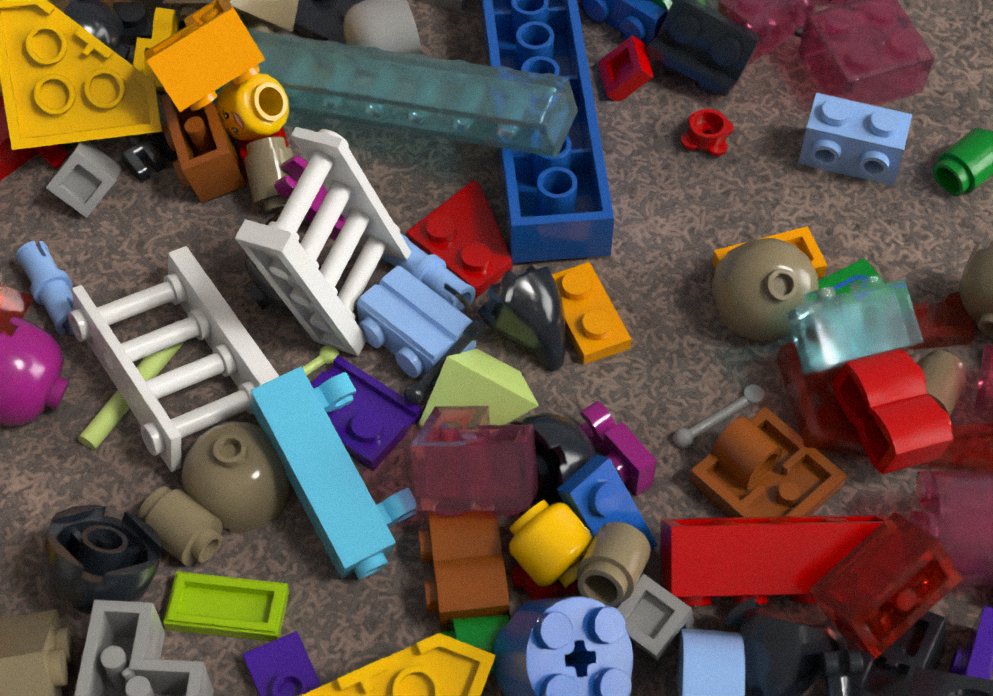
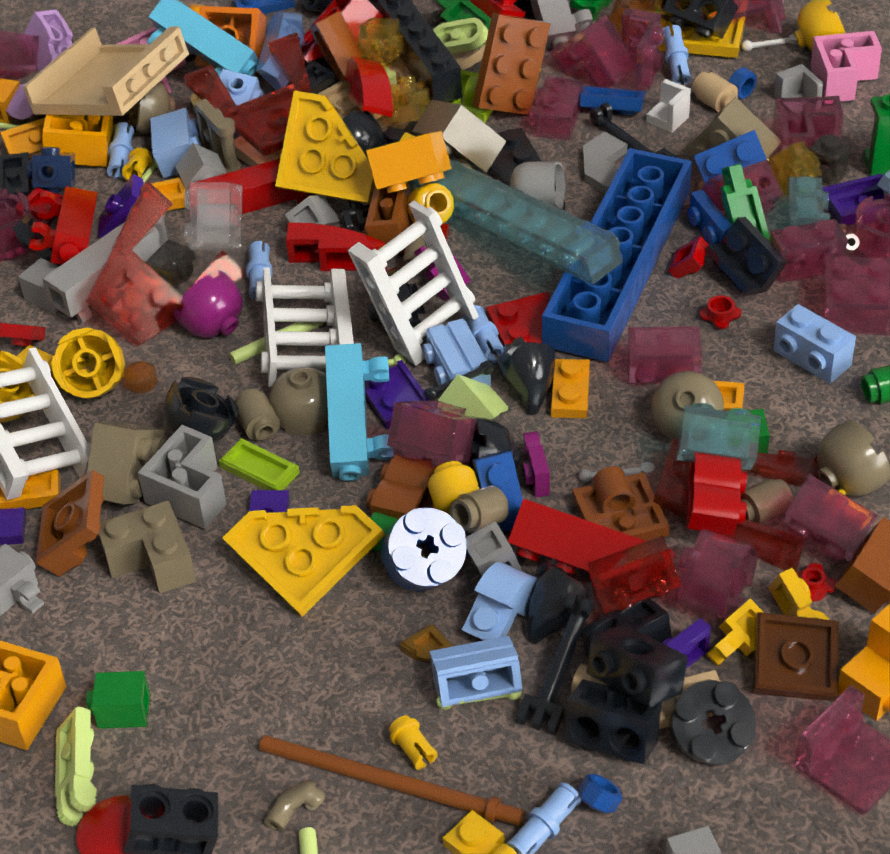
camera: 30 degrees right, 10 degrees down
(144, 213) = (325, 245): none -> red slope
(686, 221) = (662, 351): none -> clear pink brick

